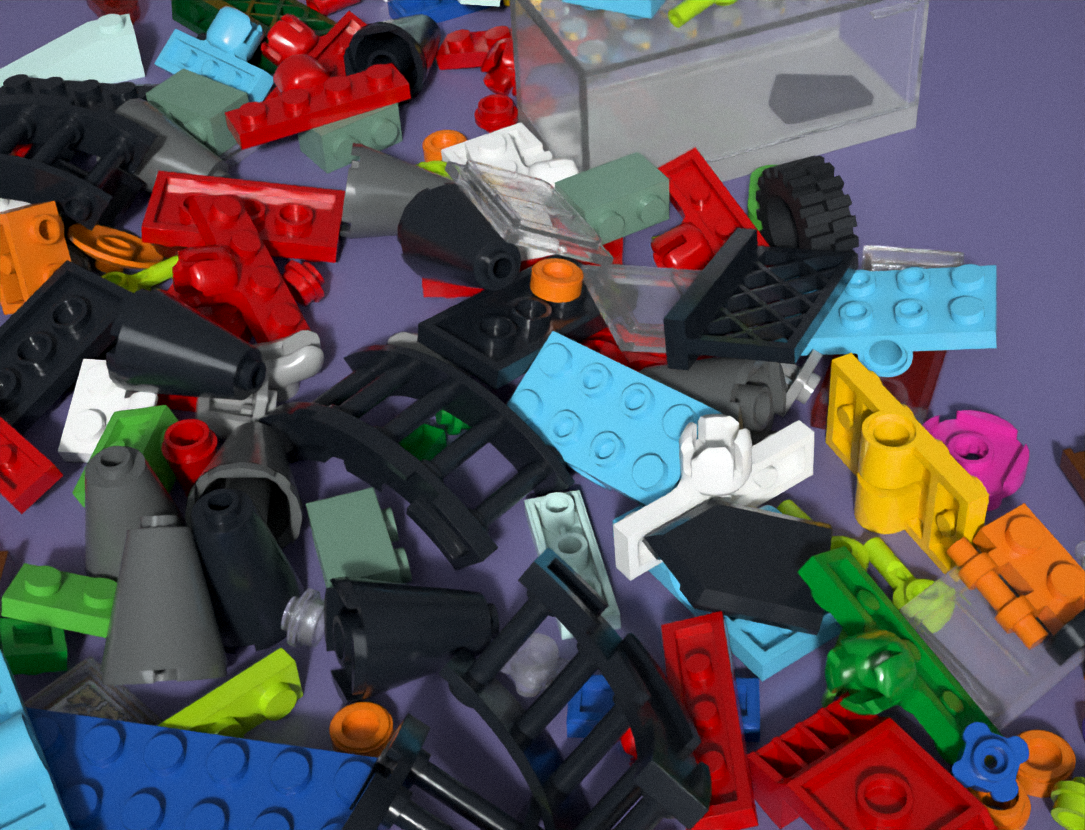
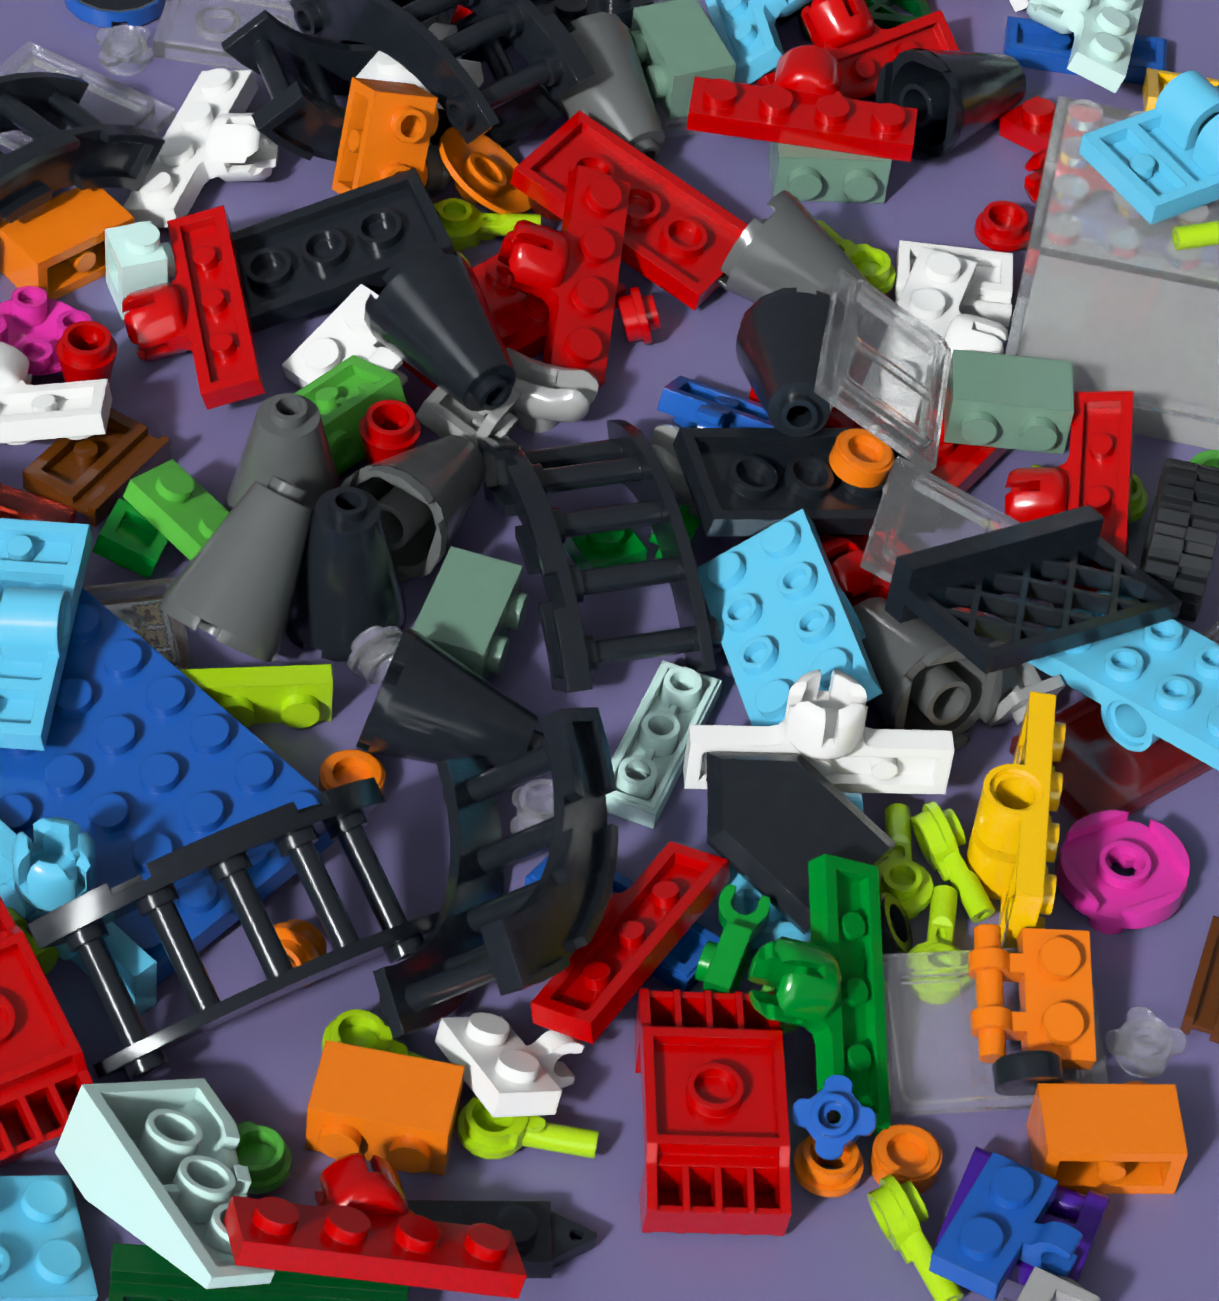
camera: 25 degrees right, 5 degrees up
(406, 313) = (708, 407): none -> blue plate
(439, 140) = (914, 228): orange tile -> none
(783, 691) = (725, 962): none -> green plate
(835, 505) = (938, 838): none -> lime plate

